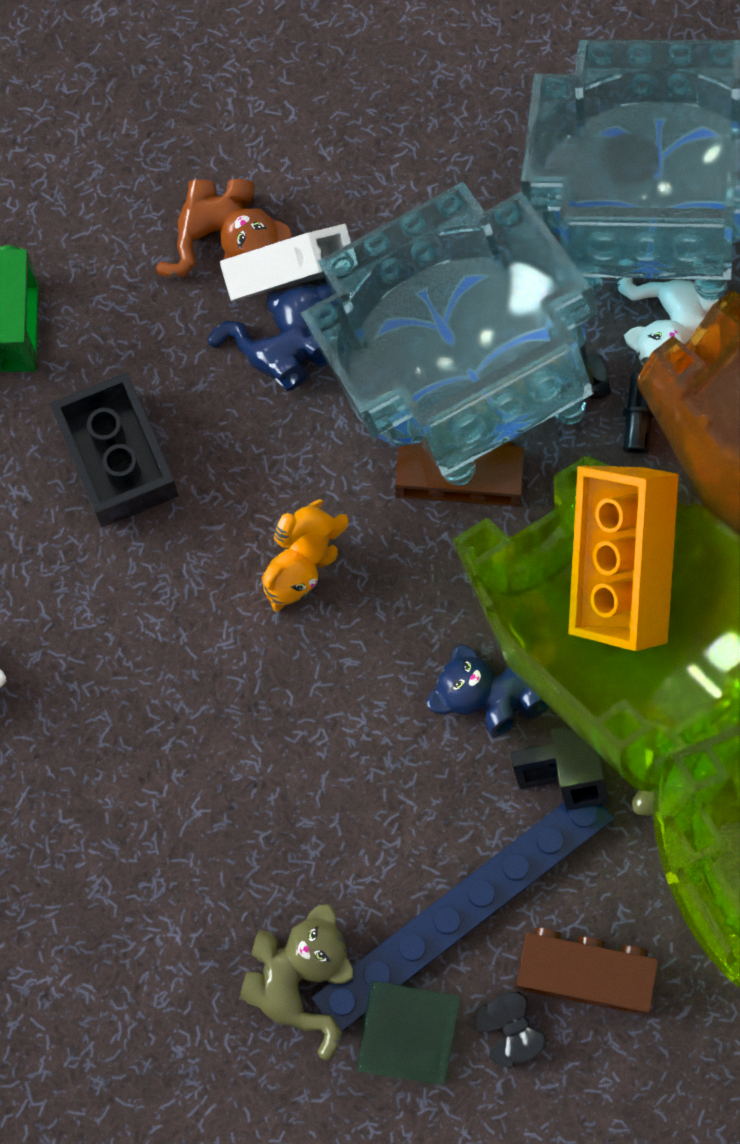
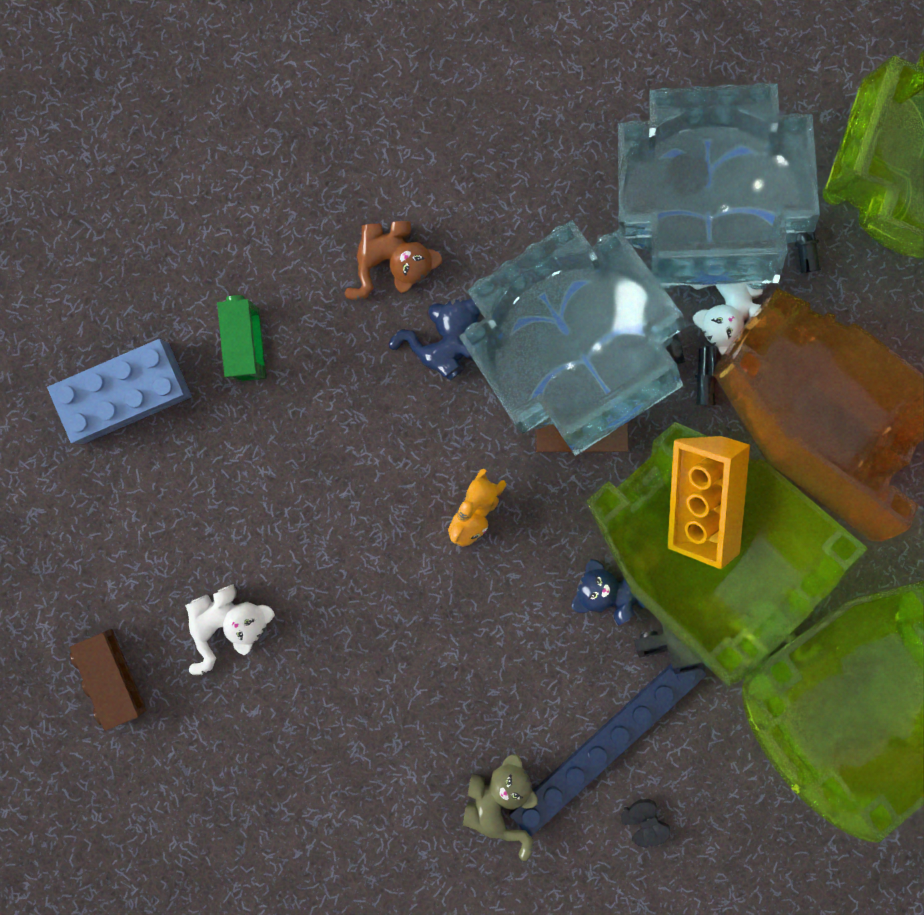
camera: 10 degrees left, 15 degrees up
(114, 449) = (330, 440): black brick -> none
(282, 262) = (441, 285): white slope -> none
(407, 1032) = (577, 834): clear green tile -> none
(586, 972) = (695, 784): reddish brown brick -> none

